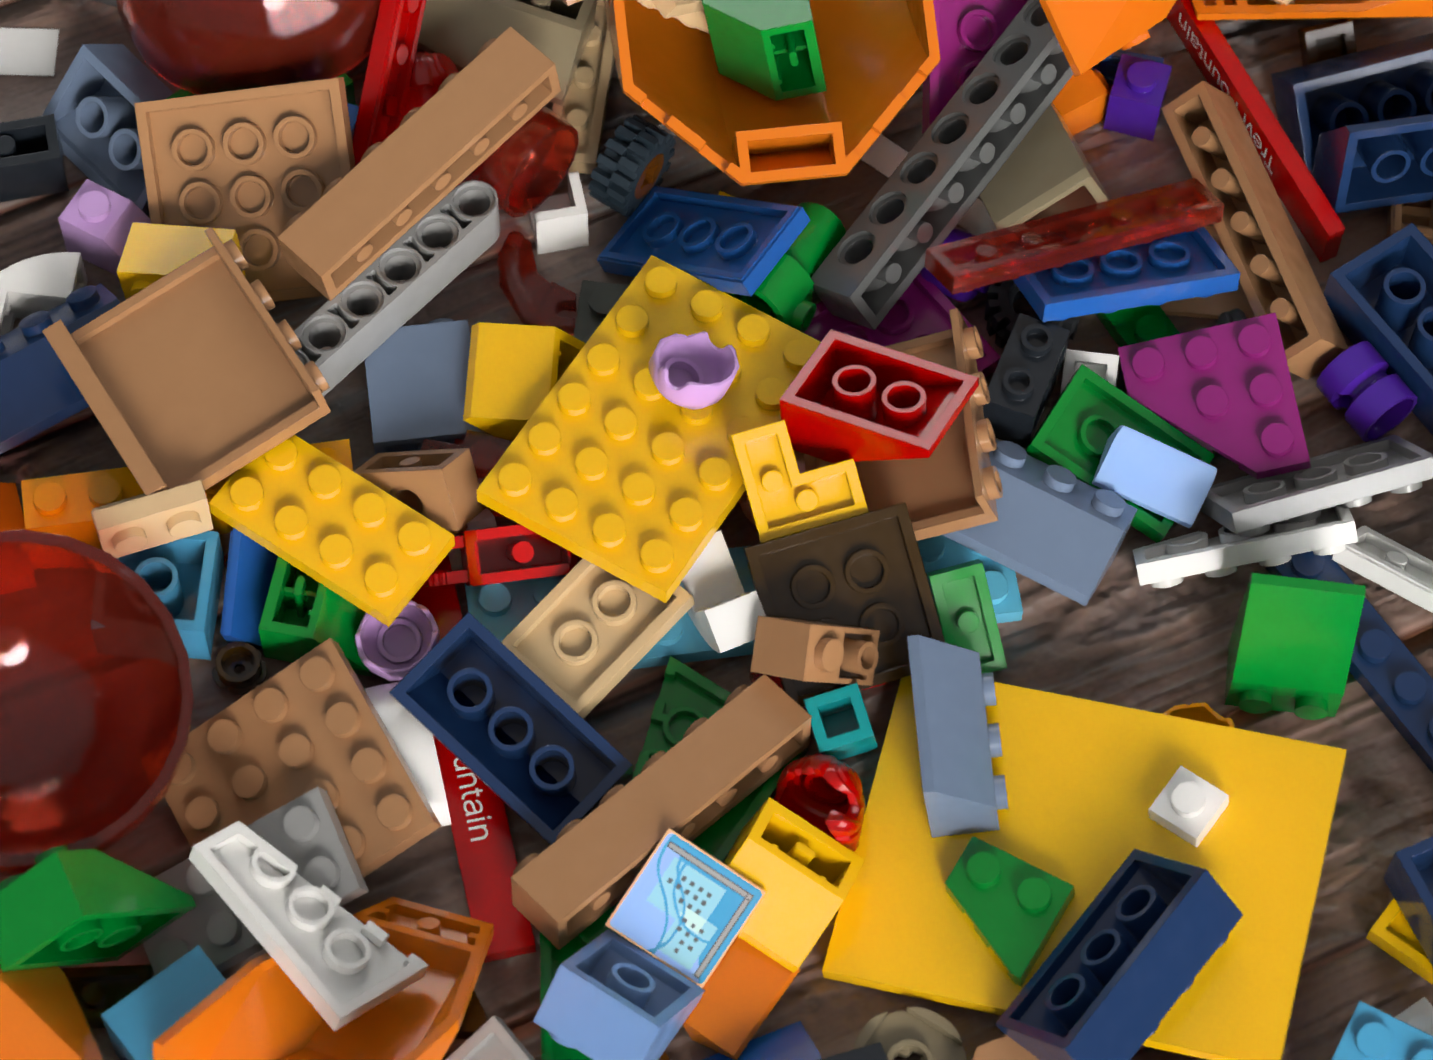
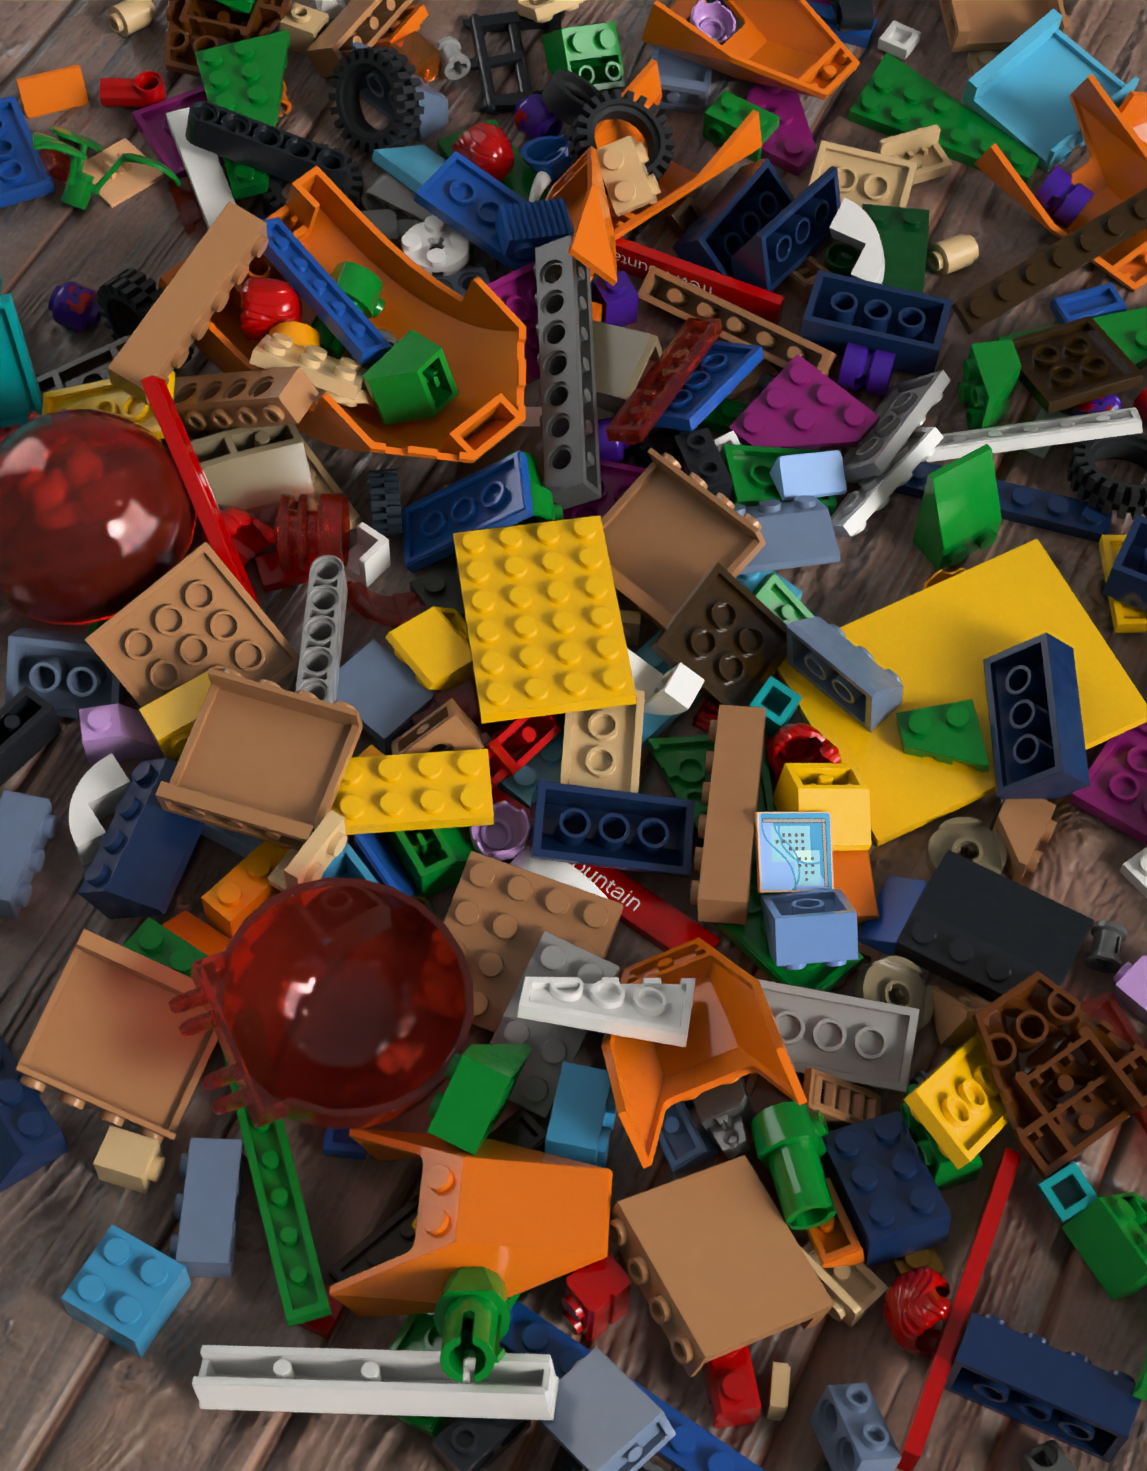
camera: 40 degrees left, 5 degrees down
(419, 163) = (288, 563): medium nougat brick -> none
(692, 369) = (547, 569): lavender hair -> none
(791, 500) = (645, 602): yellow plate -> none
(815, 651) = (736, 673): medium nougat slope -> none
(871, 402) = (656, 523): red slope -> none
(1188, 806) = (989, 620): white plate -> none

